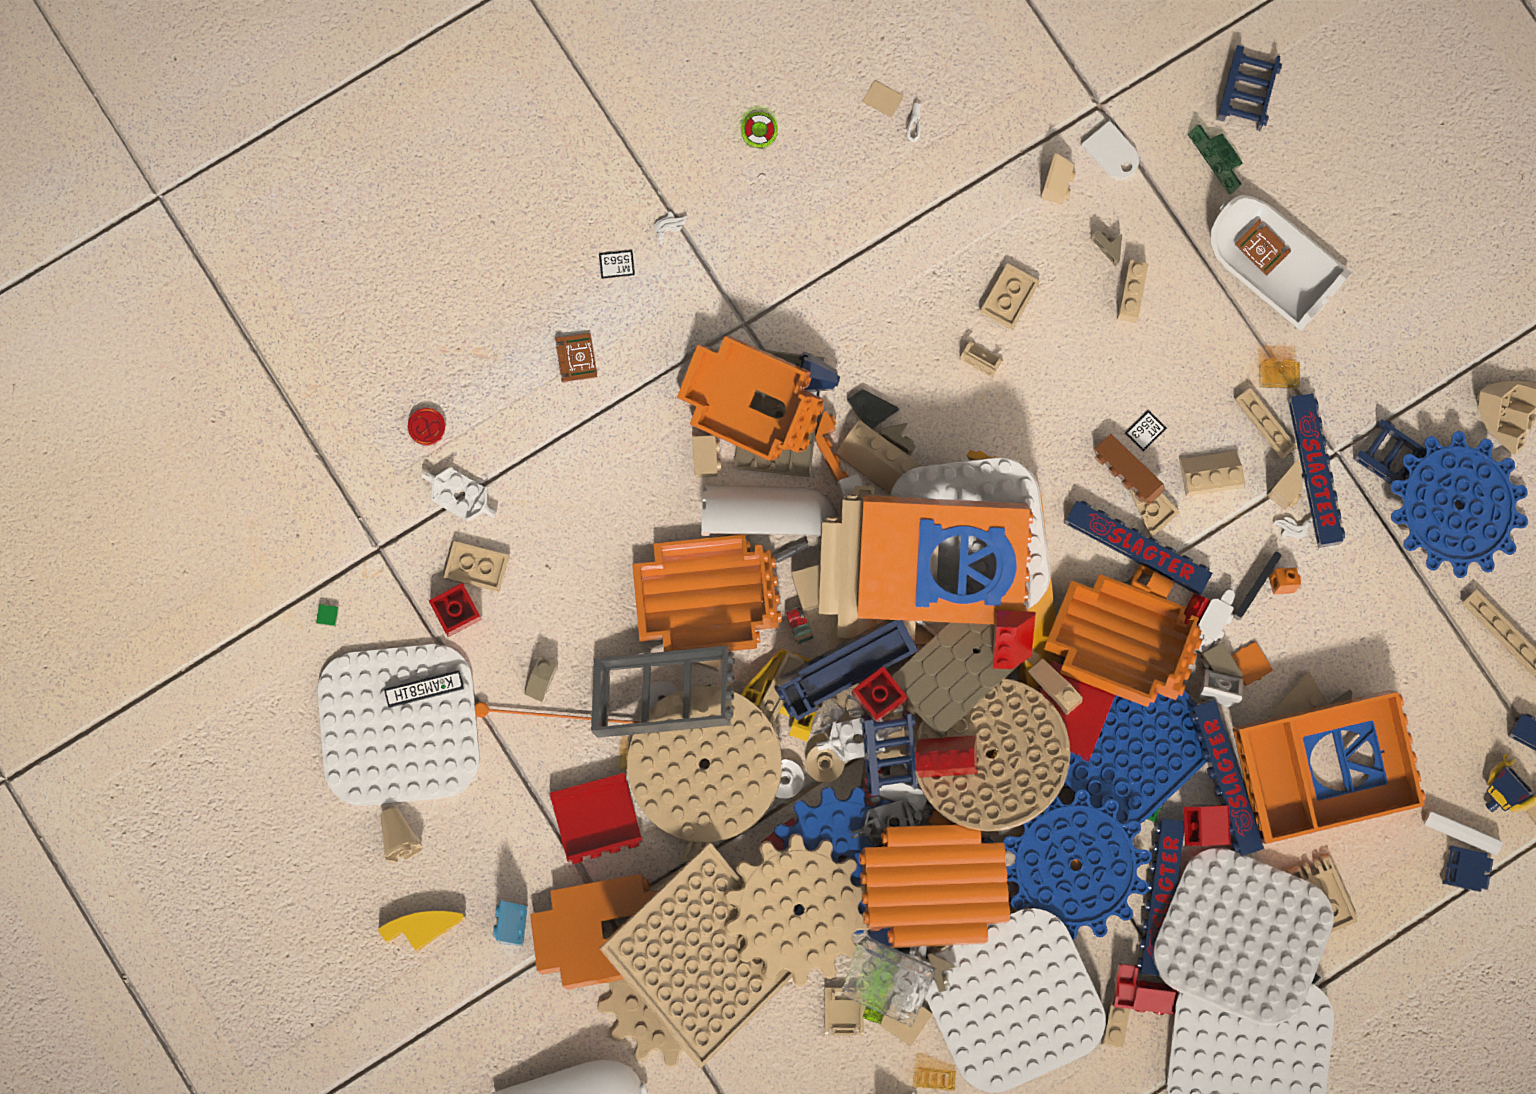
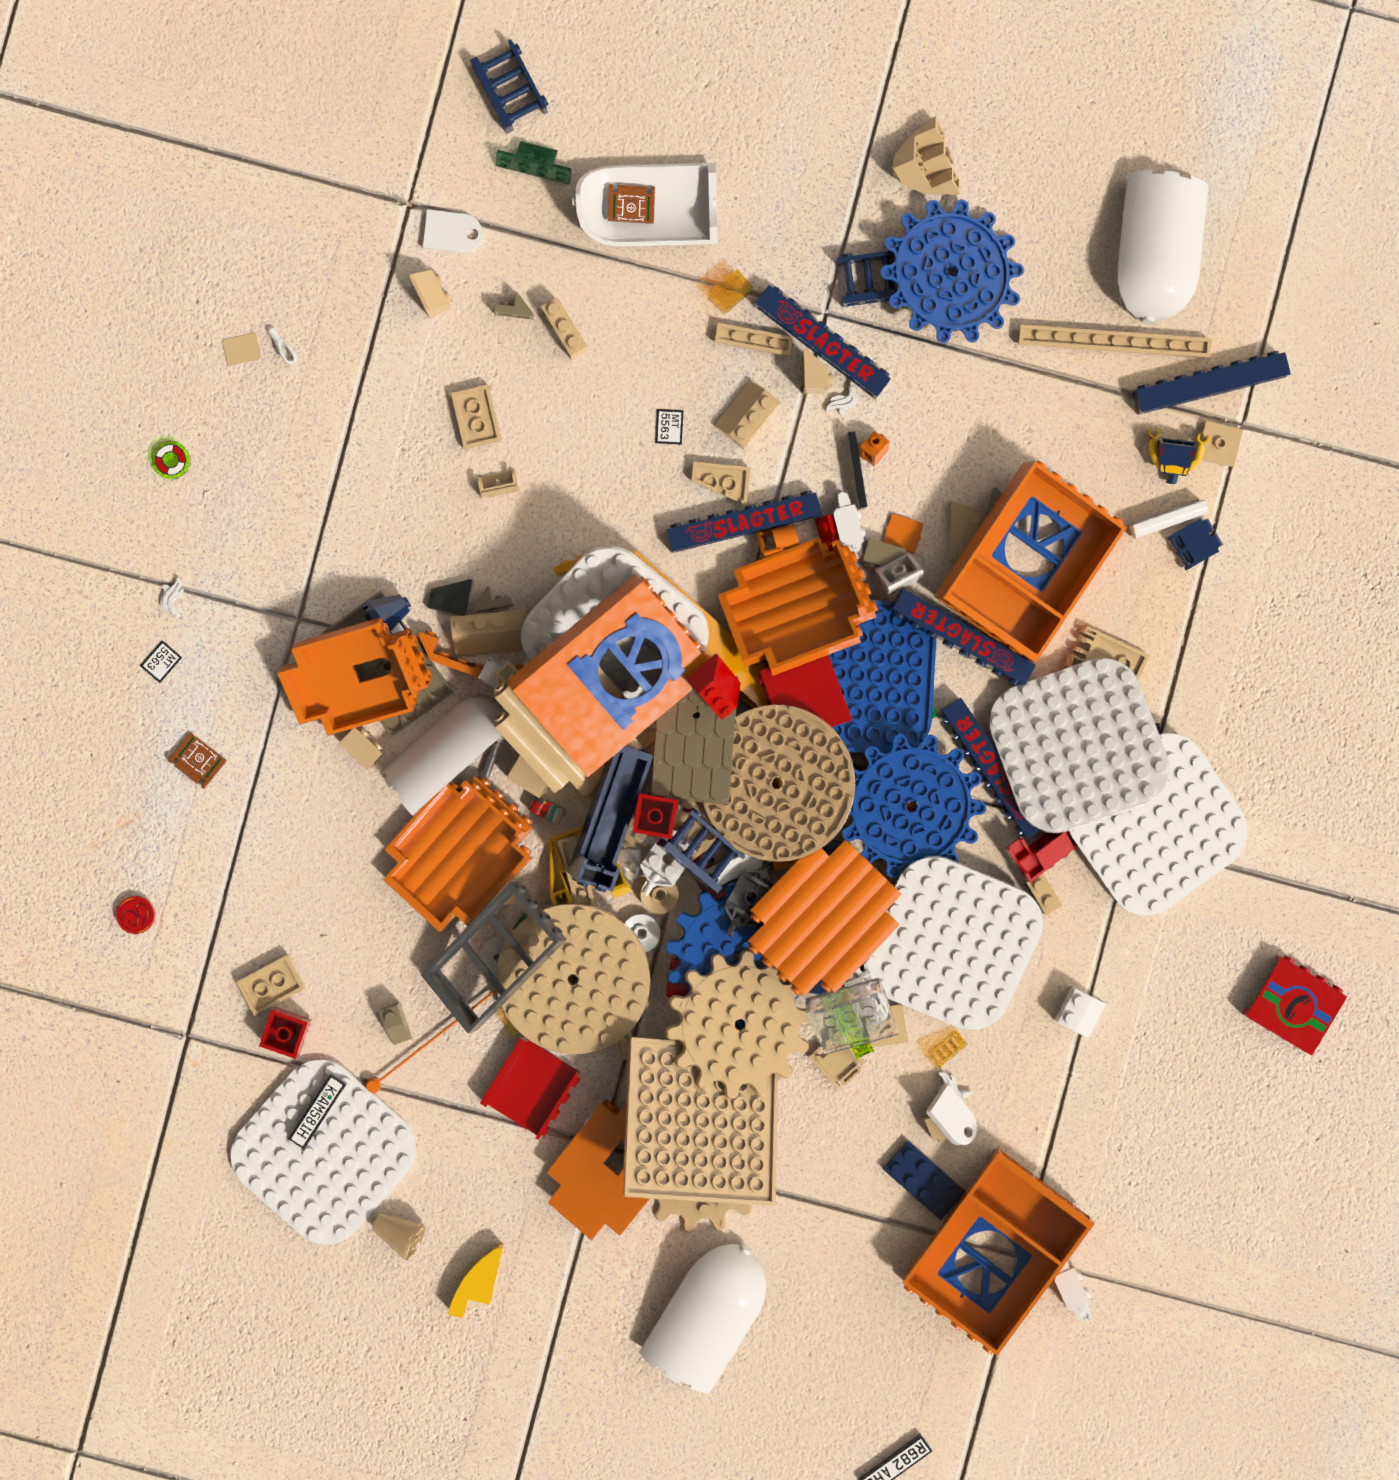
camera: 35 degrees left, 10 degrees up
(327, 615) = (196, 1120): green tile -> none
(448, 483) = (192, 947): white plate -> none
(510, 923) = (540, 1223): dark azure slope -> none
(941, 965) = (878, 969): dark tan slope -> none
(946, 756) = (745, 815): red slope -> none
(1056, 686) = (778, 689): tan slope -> none
(1129, 470) = (684, 469): dark orange brick -> none
(1206, 825) = (978, 686): red slope -> none

